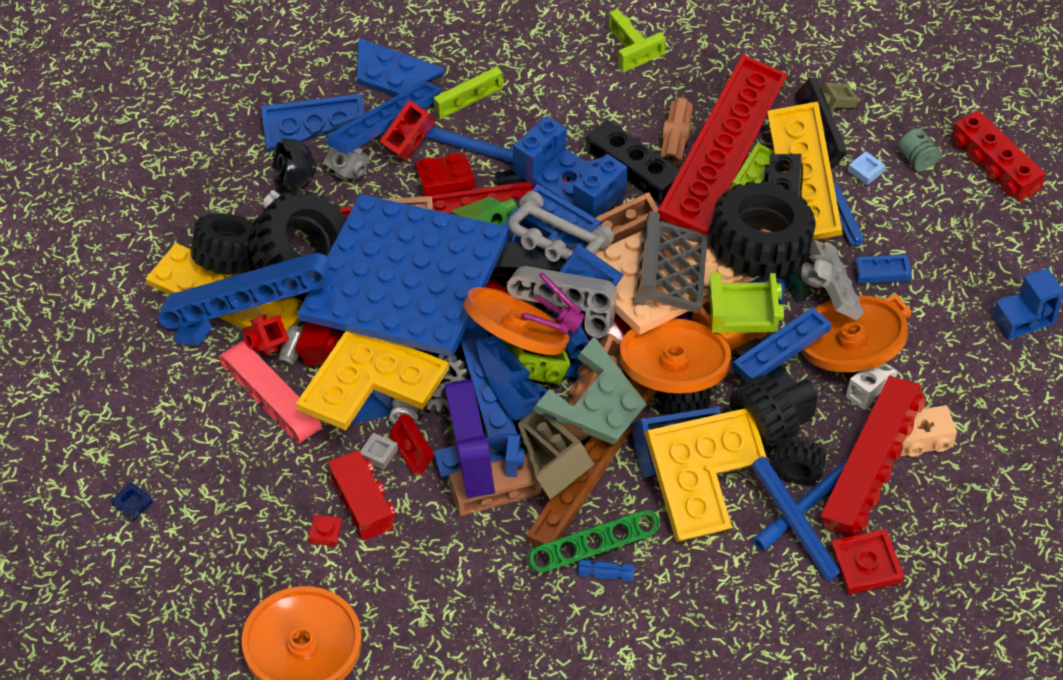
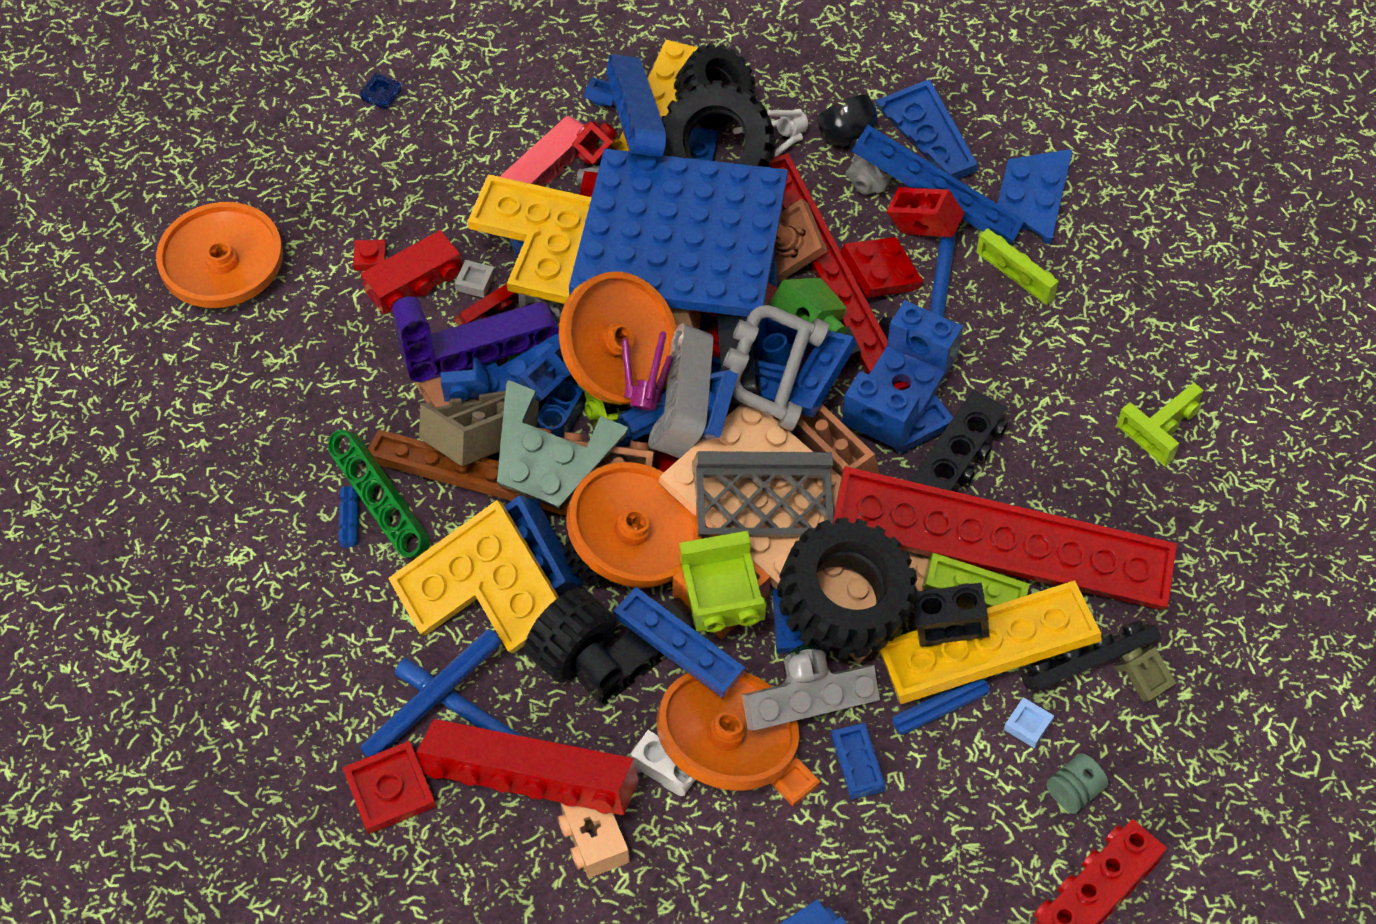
camera: 80 degrees right, 5 degrees up
(676, 131) = (1025, 490): nougat piece -> none
(799, 461) = (513, 687): black tyre -> none

